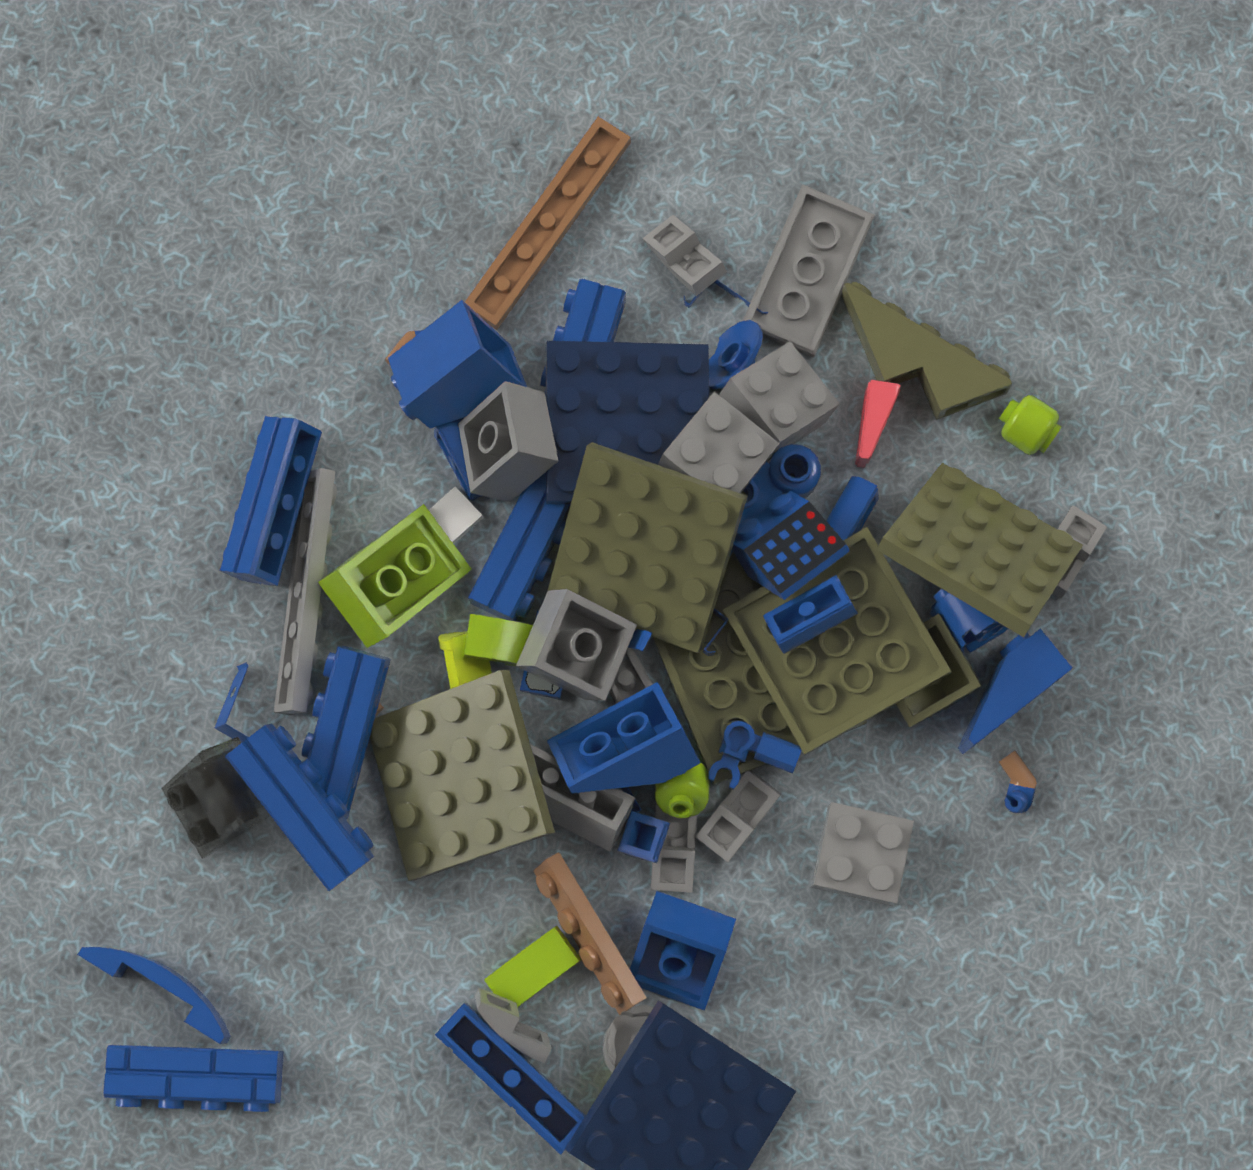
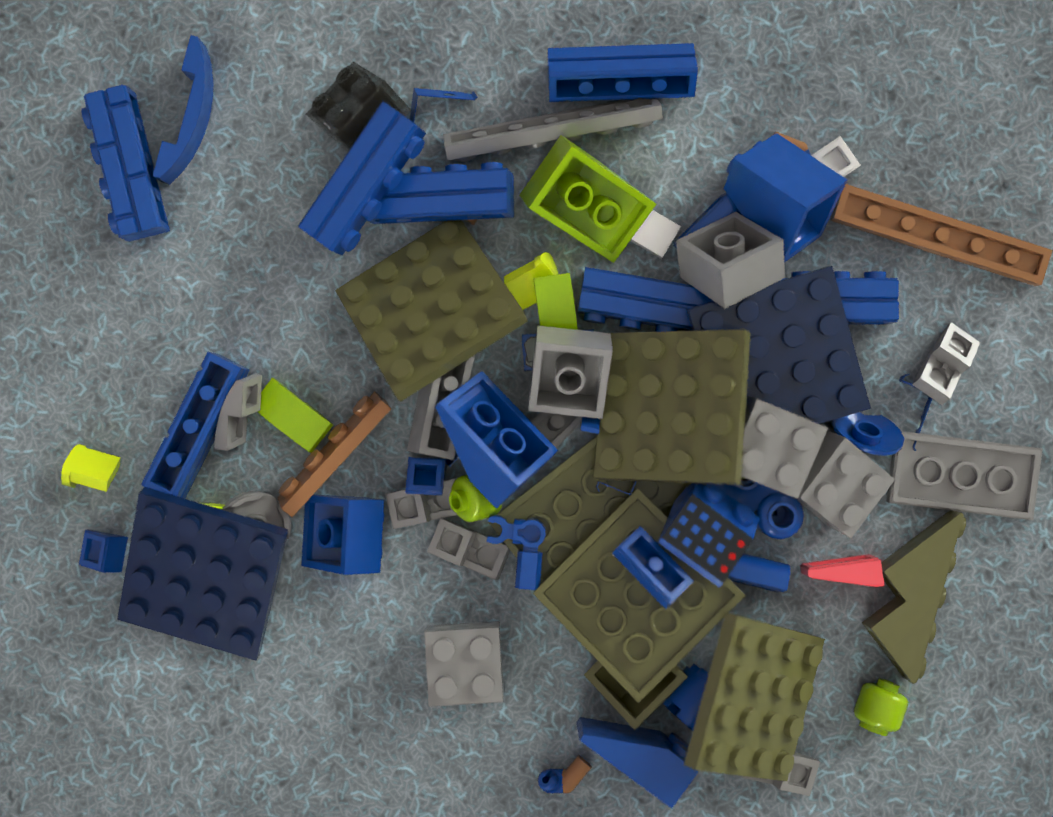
camera: 75 degrees right, 10 degrees up
(432, 303) = (837, 157): none -> white tile

